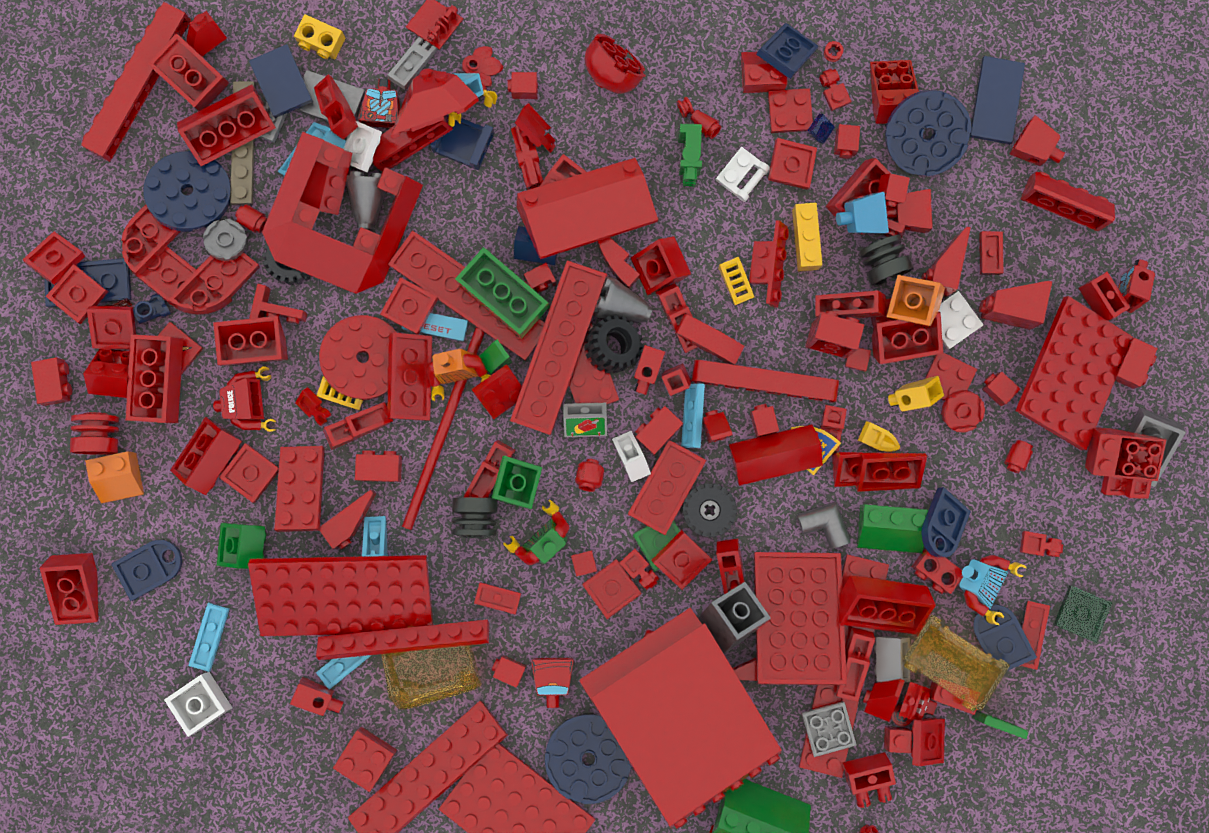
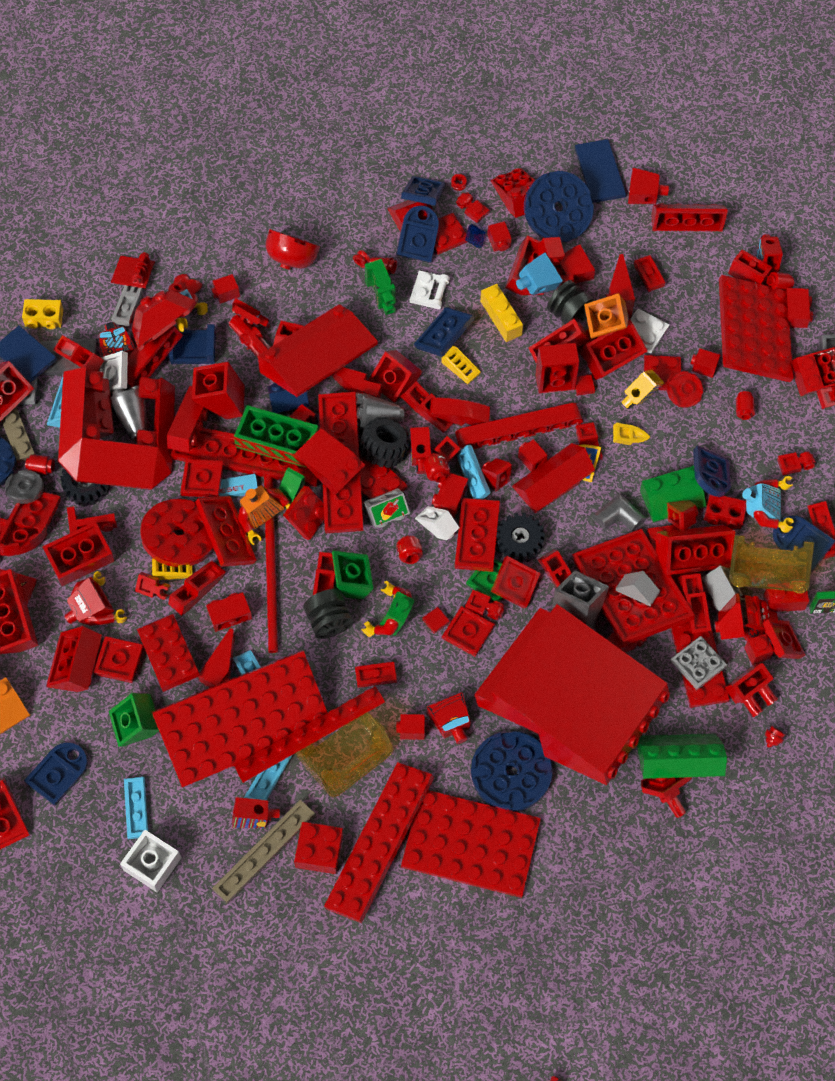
camera: 25 degrees left, 20 degrees down
(312, 737) = (263, 852): none -> dark tan plate
(421, 233) = (186, 424): none -> red brick
(463, 212) = (219, 390): none -> red slope
(542, 350) = (329, 460): none -> red slope
(654, 399) = (436, 467): none -> red head
(735, 234) = (444, 331): none -> dark blue tile
(757, 105) = (418, 235): none -> dark blue tile
(768, 263) = (480, 344): red bracket -> none
(792, 163) = (465, 267): red plate -> none
(802, 628) = (638, 587): none -> light grey slope
(878, 470) = (640, 455): red slope -> none
(889, 558) = (682, 514): none -> red slope
(1018, 306) = (686, 298): red slope -> none
(1131, 324) = (780, 280): none -> red brick

